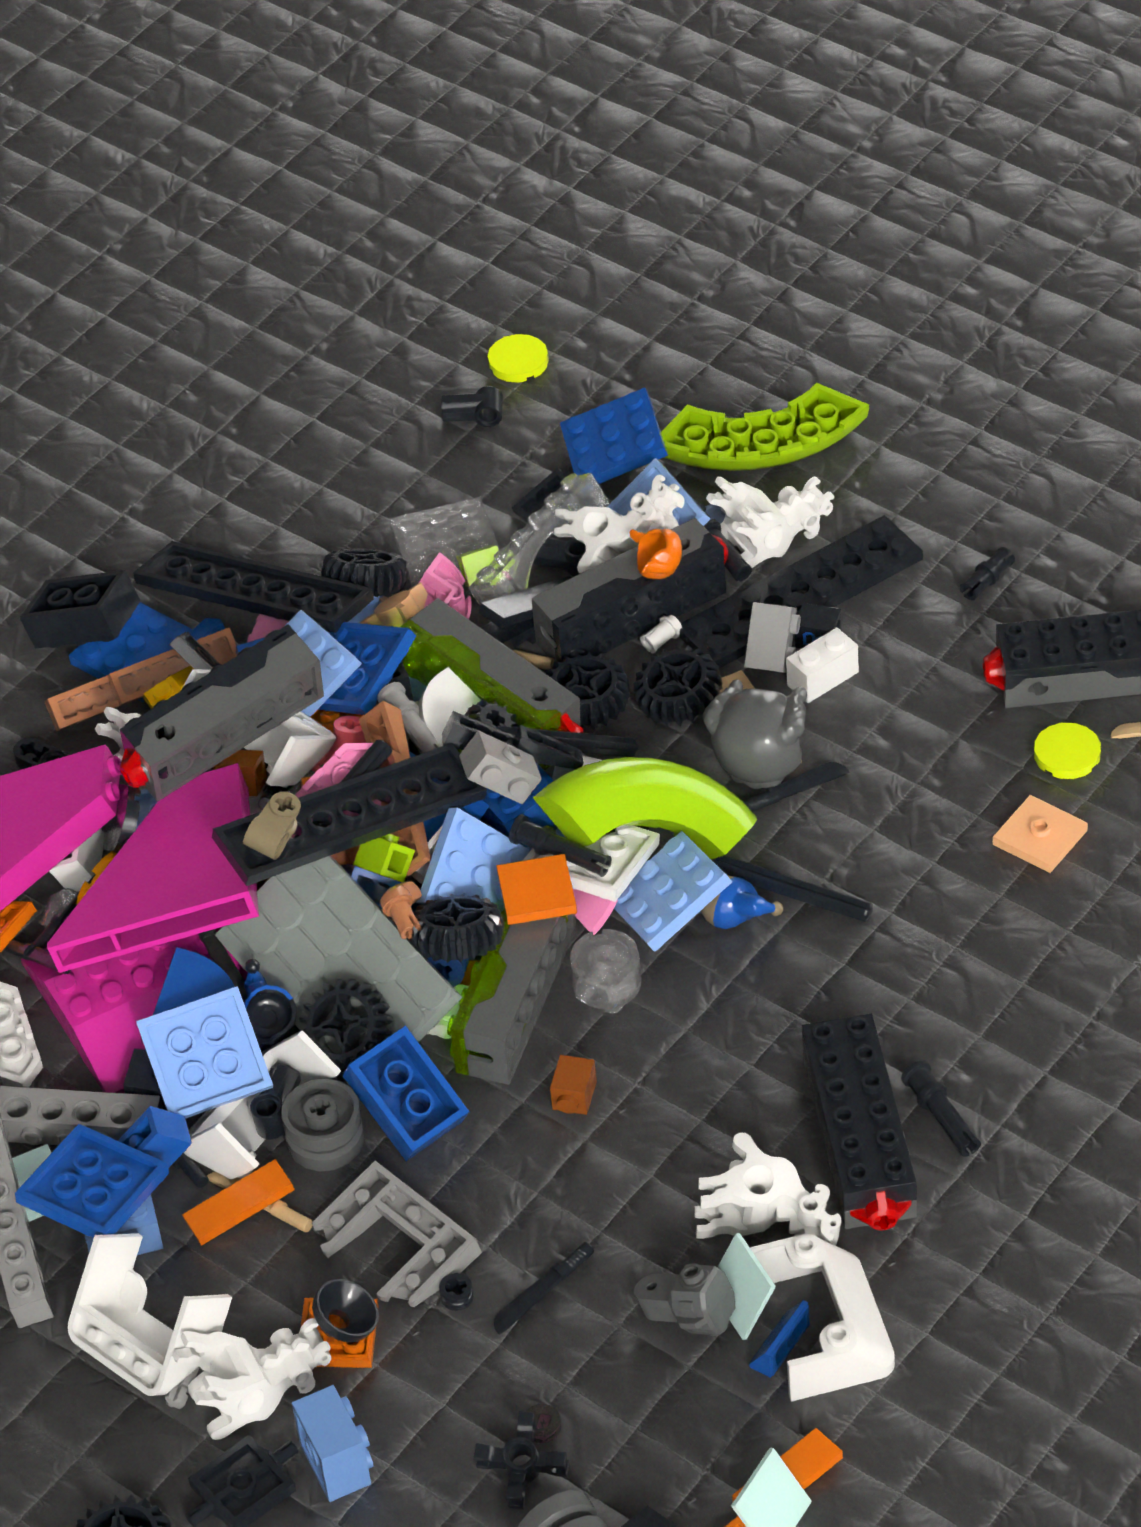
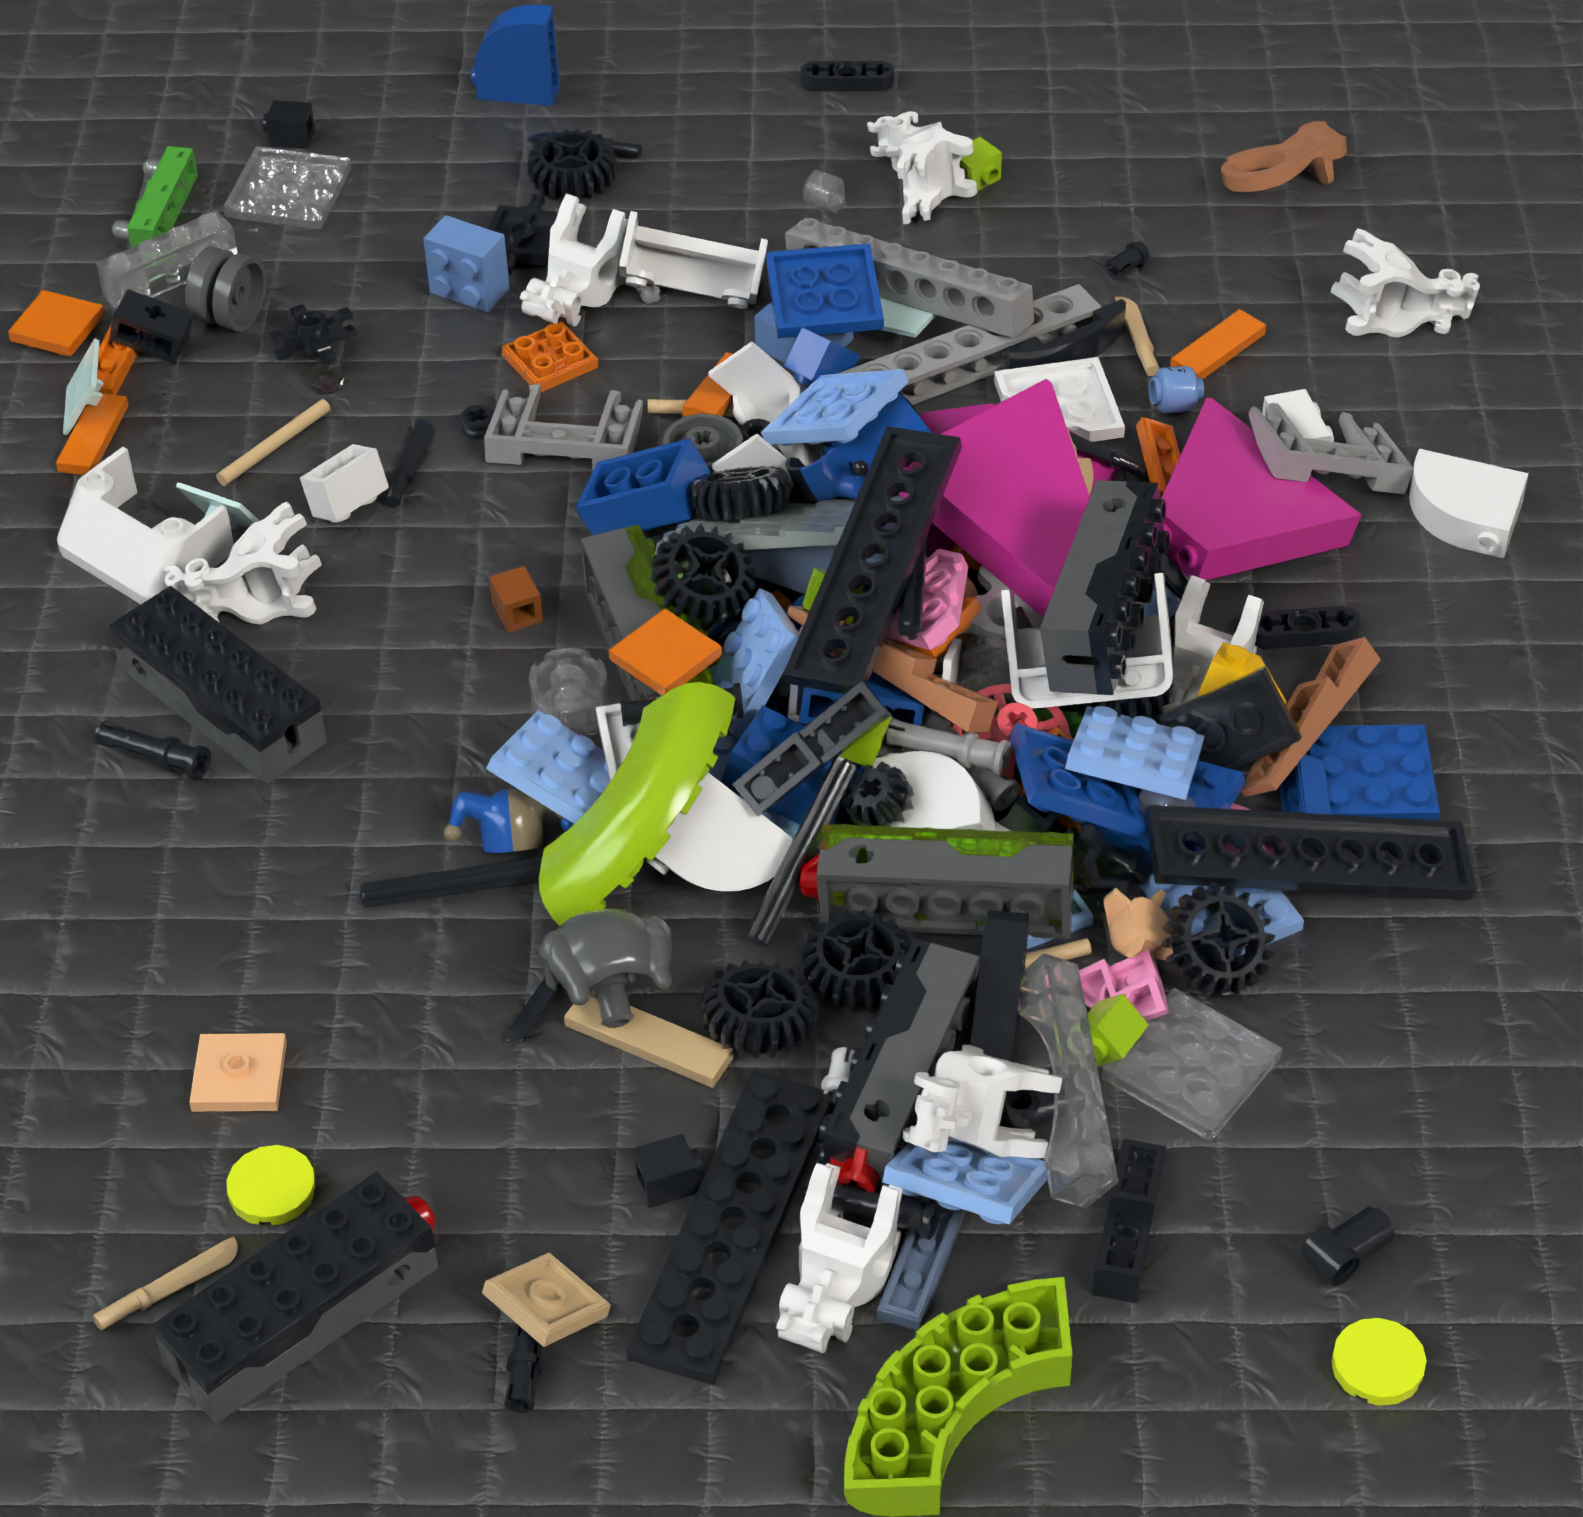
camera: 140 degrees right, 0 degrees up
(80, 609) = (1449, 735): black brick -> none
(274, 825) = (902, 461): dark tan piece -> none
(351, 1304) = (527, 318): black piece -> none
(397, 904) = (770, 549): nougat arm -> none
(500, 767) = (788, 694): light grey brick -> none
(614, 437) = (1117, 1262): blue plate -> none
(621, 1261) = (344, 483): none -> white brick
(638, 1374) = (273, 442): none -> tan bar
(657, 552) = (868, 1052): orange hair -> none
(695, 1298) = (258, 479): dark grey piece -> none
(771, 636) = (695, 1101): light grey brick -> none
(781, 1340) = (167, 500): blue slope -> none
(823, 664) = (620, 1121): white brick -> none
(949, 591) = (546, 1299): none -> tan tile

